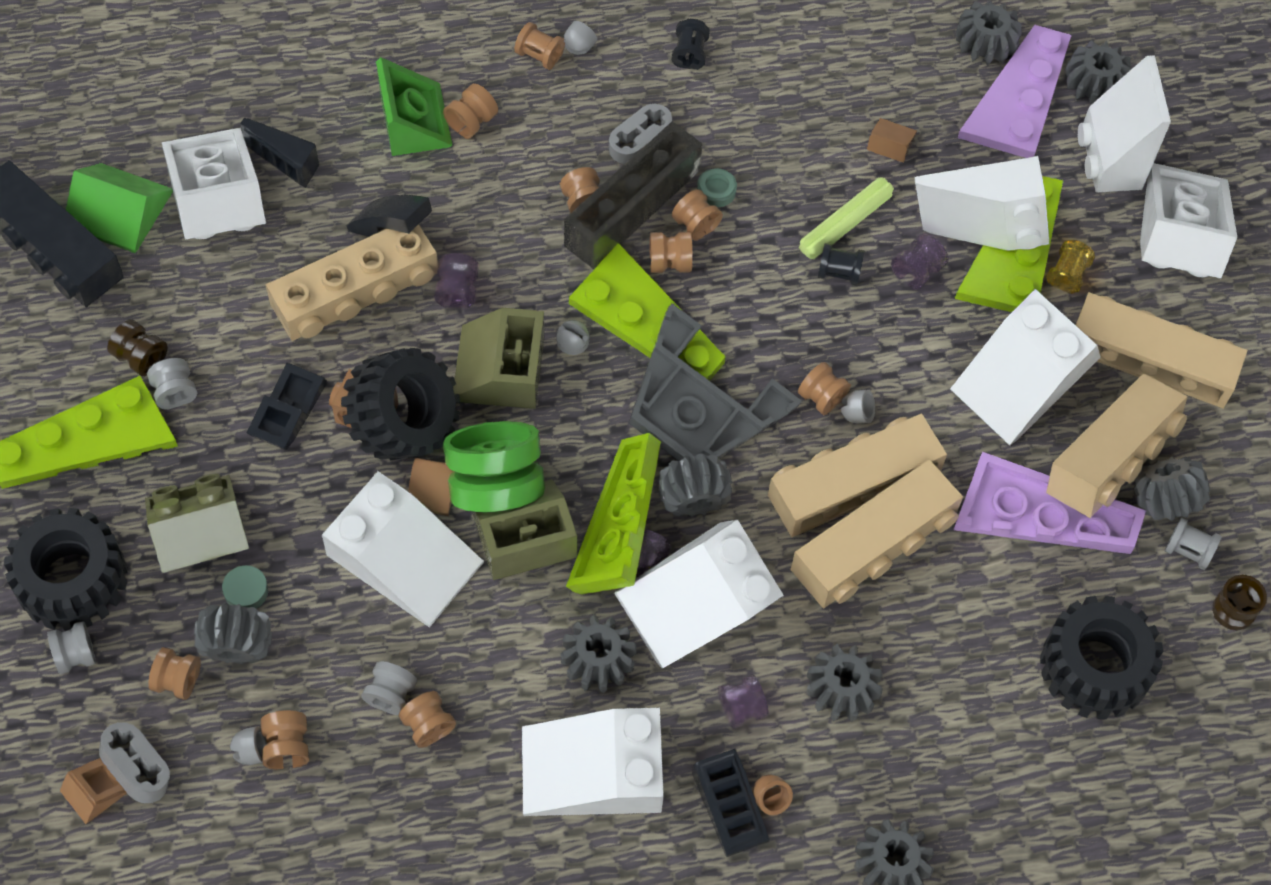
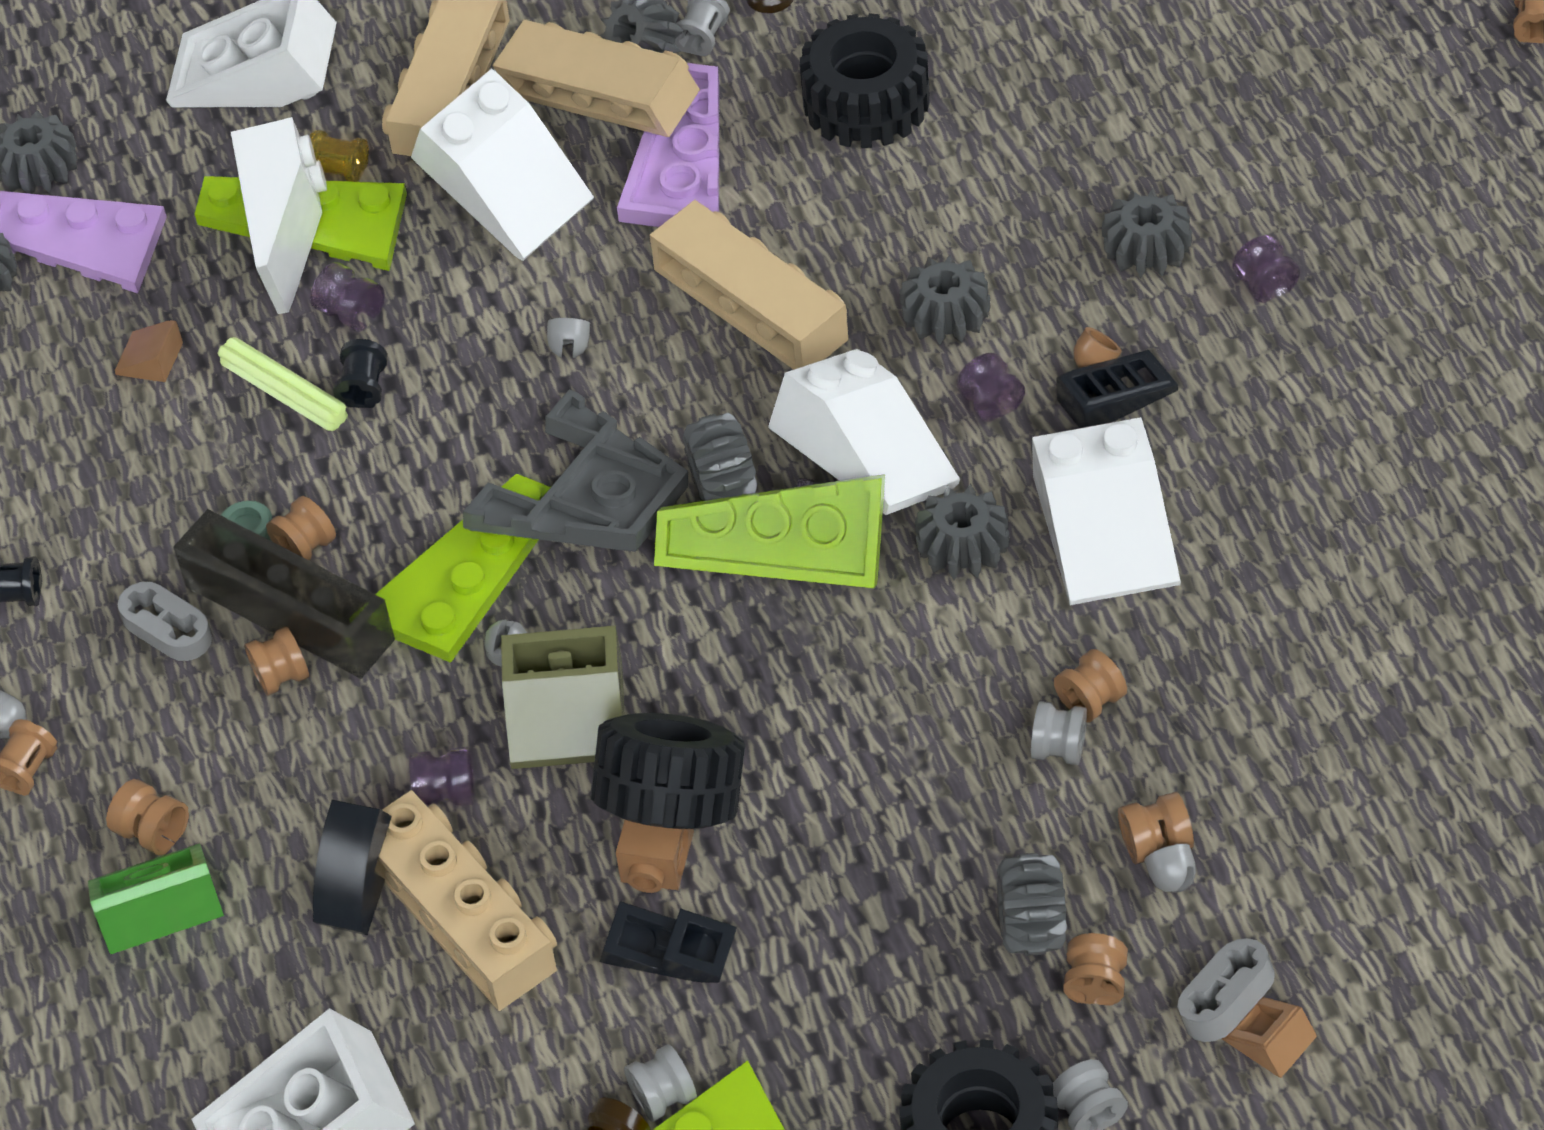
camera: 90 degrees left, 10 degrees down
(195, 522) = (870, 998): slope -> none
(245, 587) = (951, 930): sand green tile -> none
(284, 151) = (245, 1030): black slope -> none
(401, 549) = (860, 766): white slope -> none
(430, 485) = (768, 751): medium nougat slope -> none
(494, 466) = (741, 652): bright green wheel -> none
(528, 535) = (806, 629): olive slope -> none
(670, 252) = (364, 547): medium nougat wheel -> none
(824, 388) = (550, 366): medium nougat wheel -> none
(853, 474) = (668, 321): tan brick -> none
(1125, 130) = (143, 91): white slope -> none

